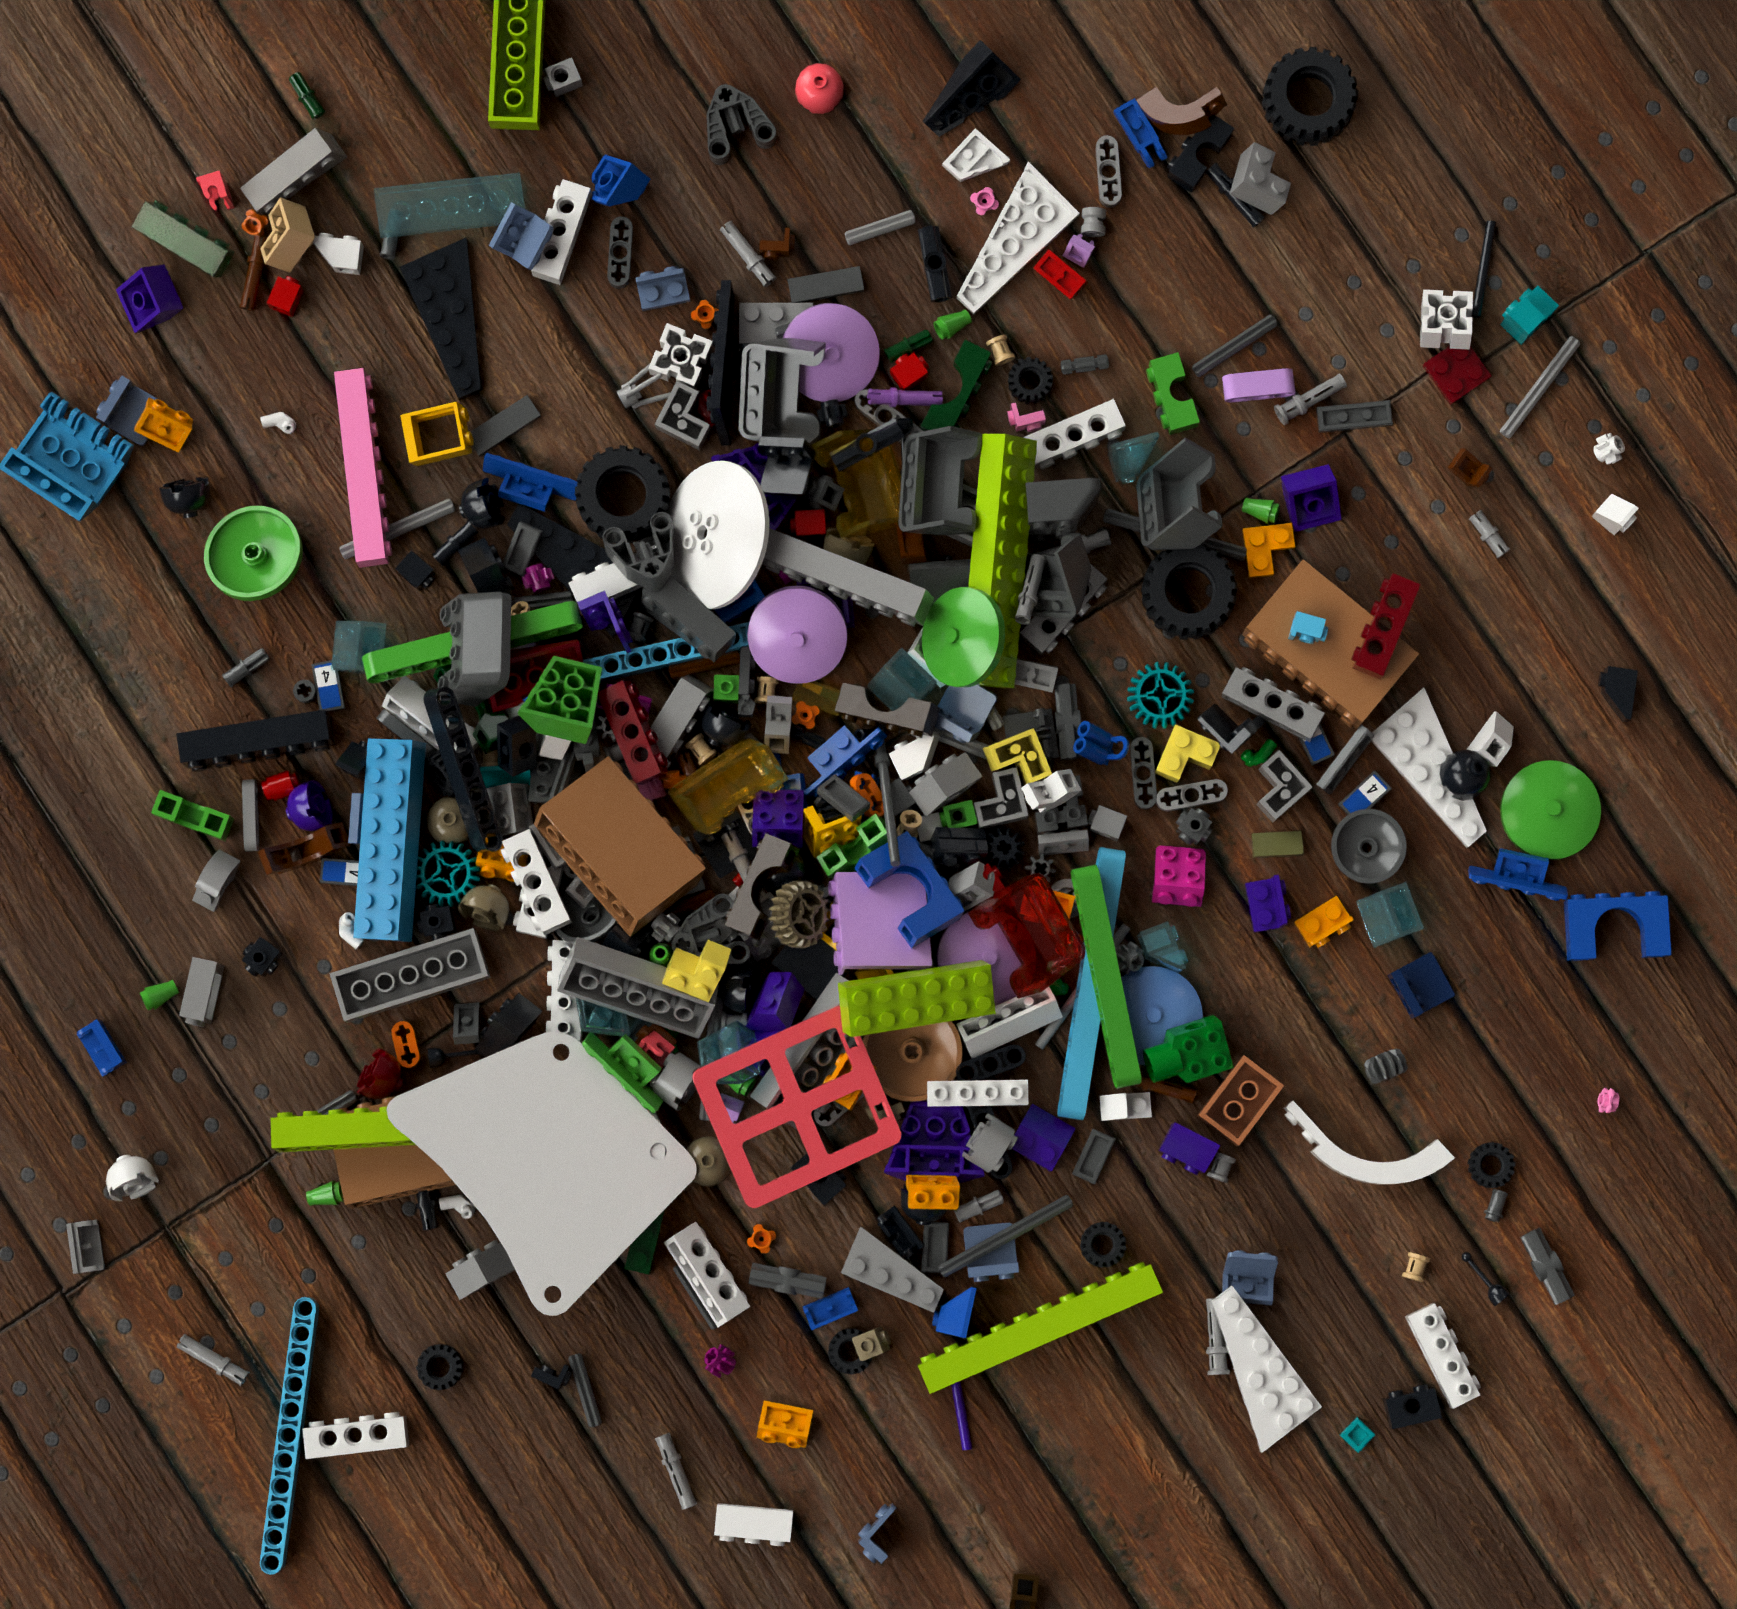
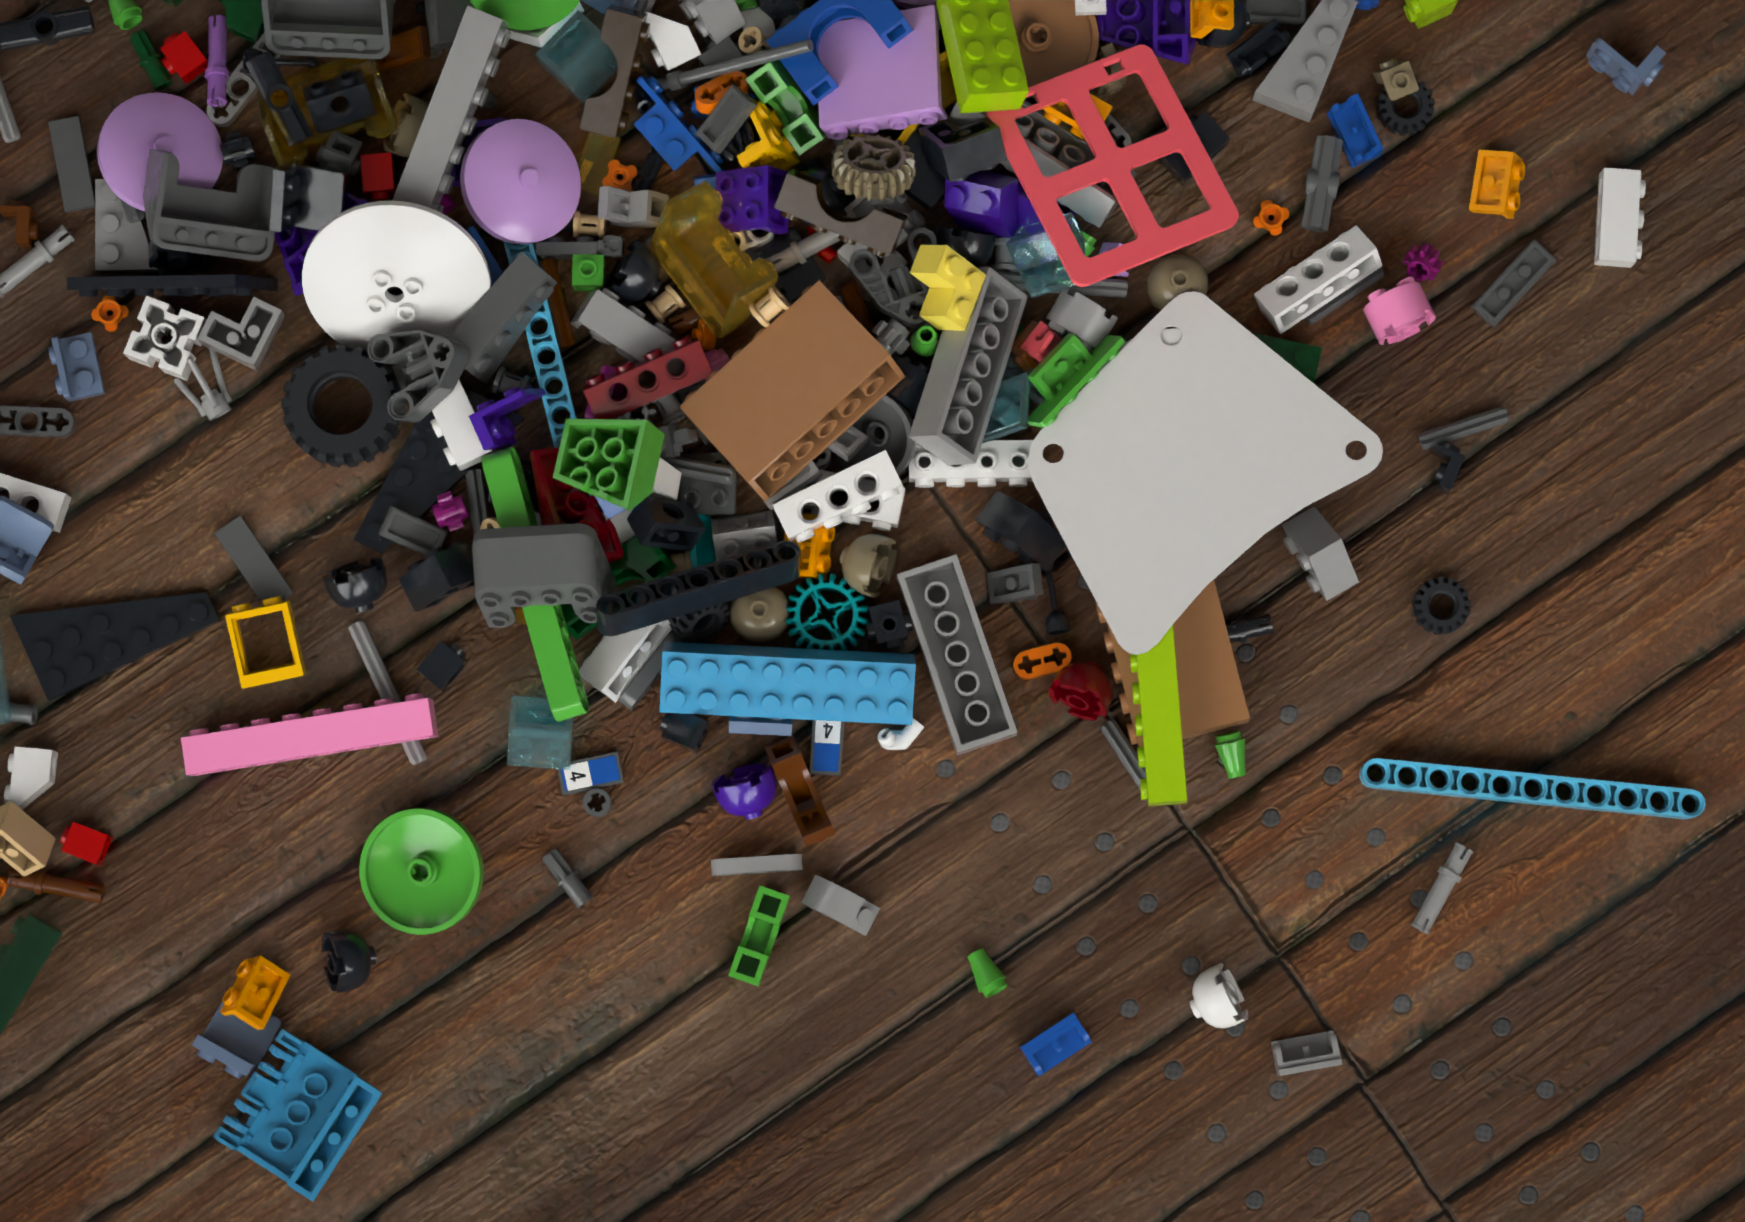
camera: 90 degrees left, 0 degrees up
(149, 297) = (88, 1019): dark purple slope -> none
(201, 991) = (983, 915): light grey window -> none
(256, 739) = (661, 857): black brick -> none
(270, 957) = (932, 832): black brick -> none
(279, 785) = (718, 828): red brick -> none
(280, 420) = (248, 845): white arm -> none
(317, 1447) = (1533, 658): white brick -> none
(454, 543) = (405, 618): black pin -> none
(459, 1203) = (1239, 587): white arm -> none
(527, 484) = (329, 527): blue bracket -> none
(675, 1470) = (1546, 319): light grey pin -> none
(677, 1338) = (1398, 311): none -> bright pink brick
(685, 828) = (769, 306): none -> tan bush
(702, 407) = (228, 309): red arm -> none
(703, 1435) = (1513, 283): none -> dark grey tile
(810, 985) = (964, 149): none -> black brick
(868, 492) = (333, 114): none -> black brick

